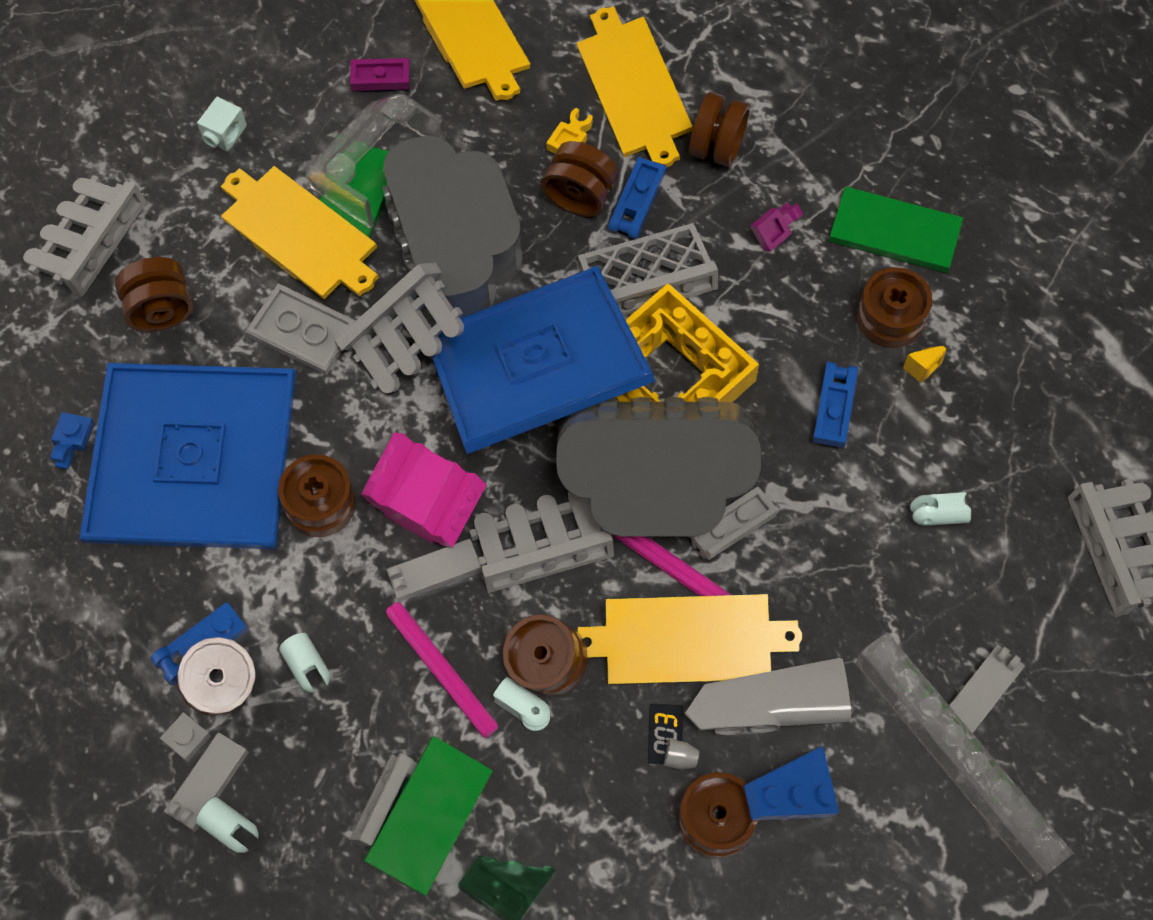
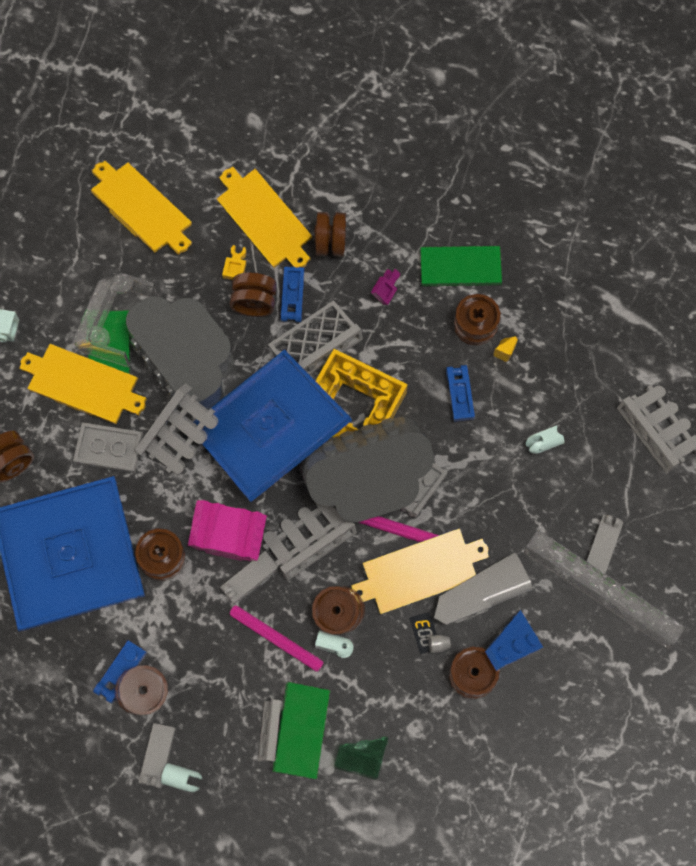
camera: 20 degrees left, 5 degrees up
(185, 737) = (133, 732): light grey plate -> none
(303, 657) = (188, 659): light aqua piece -> none
(380, 74) = (96, 259): magenta plate -> none

